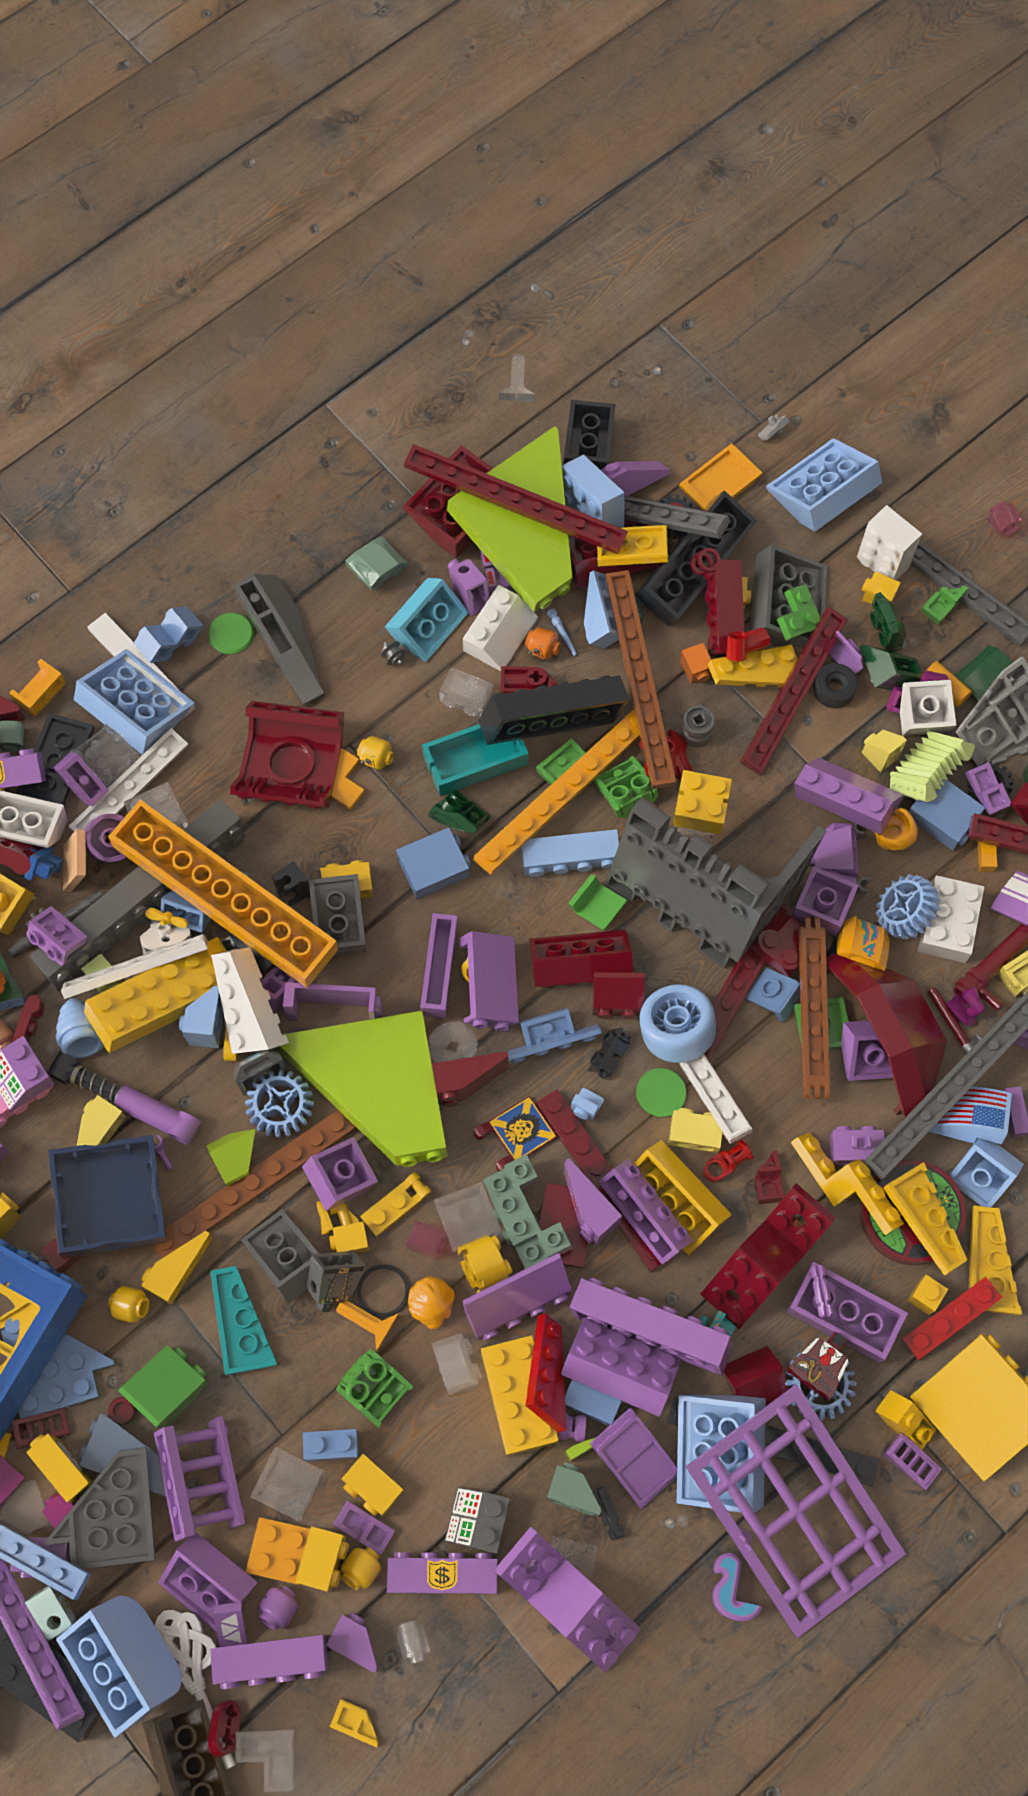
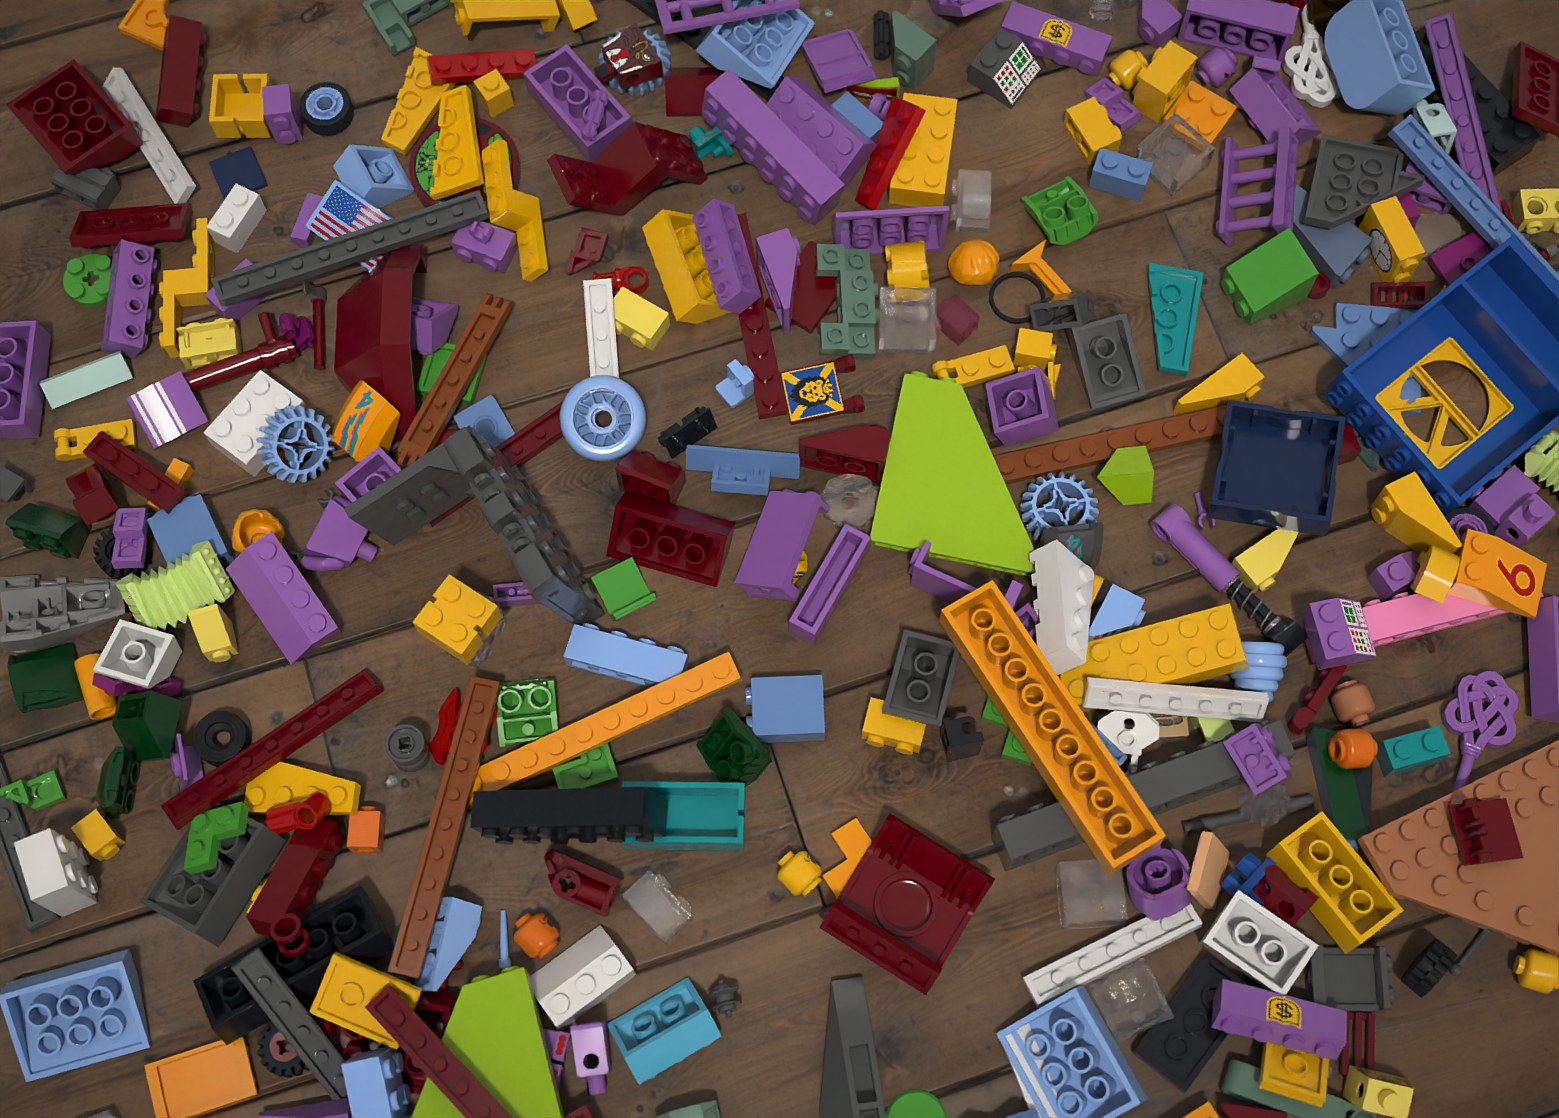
camera: 155 degrees left, 0 degrees up
(80, 778) = (1172, 970): medium lavender brick -> none
(128, 1304) = (1282, 371): yellow head -> none
(166, 918) = (1121, 747): yellow piece -> none
(661, 1092) = (653, 375): bright green piece -> none

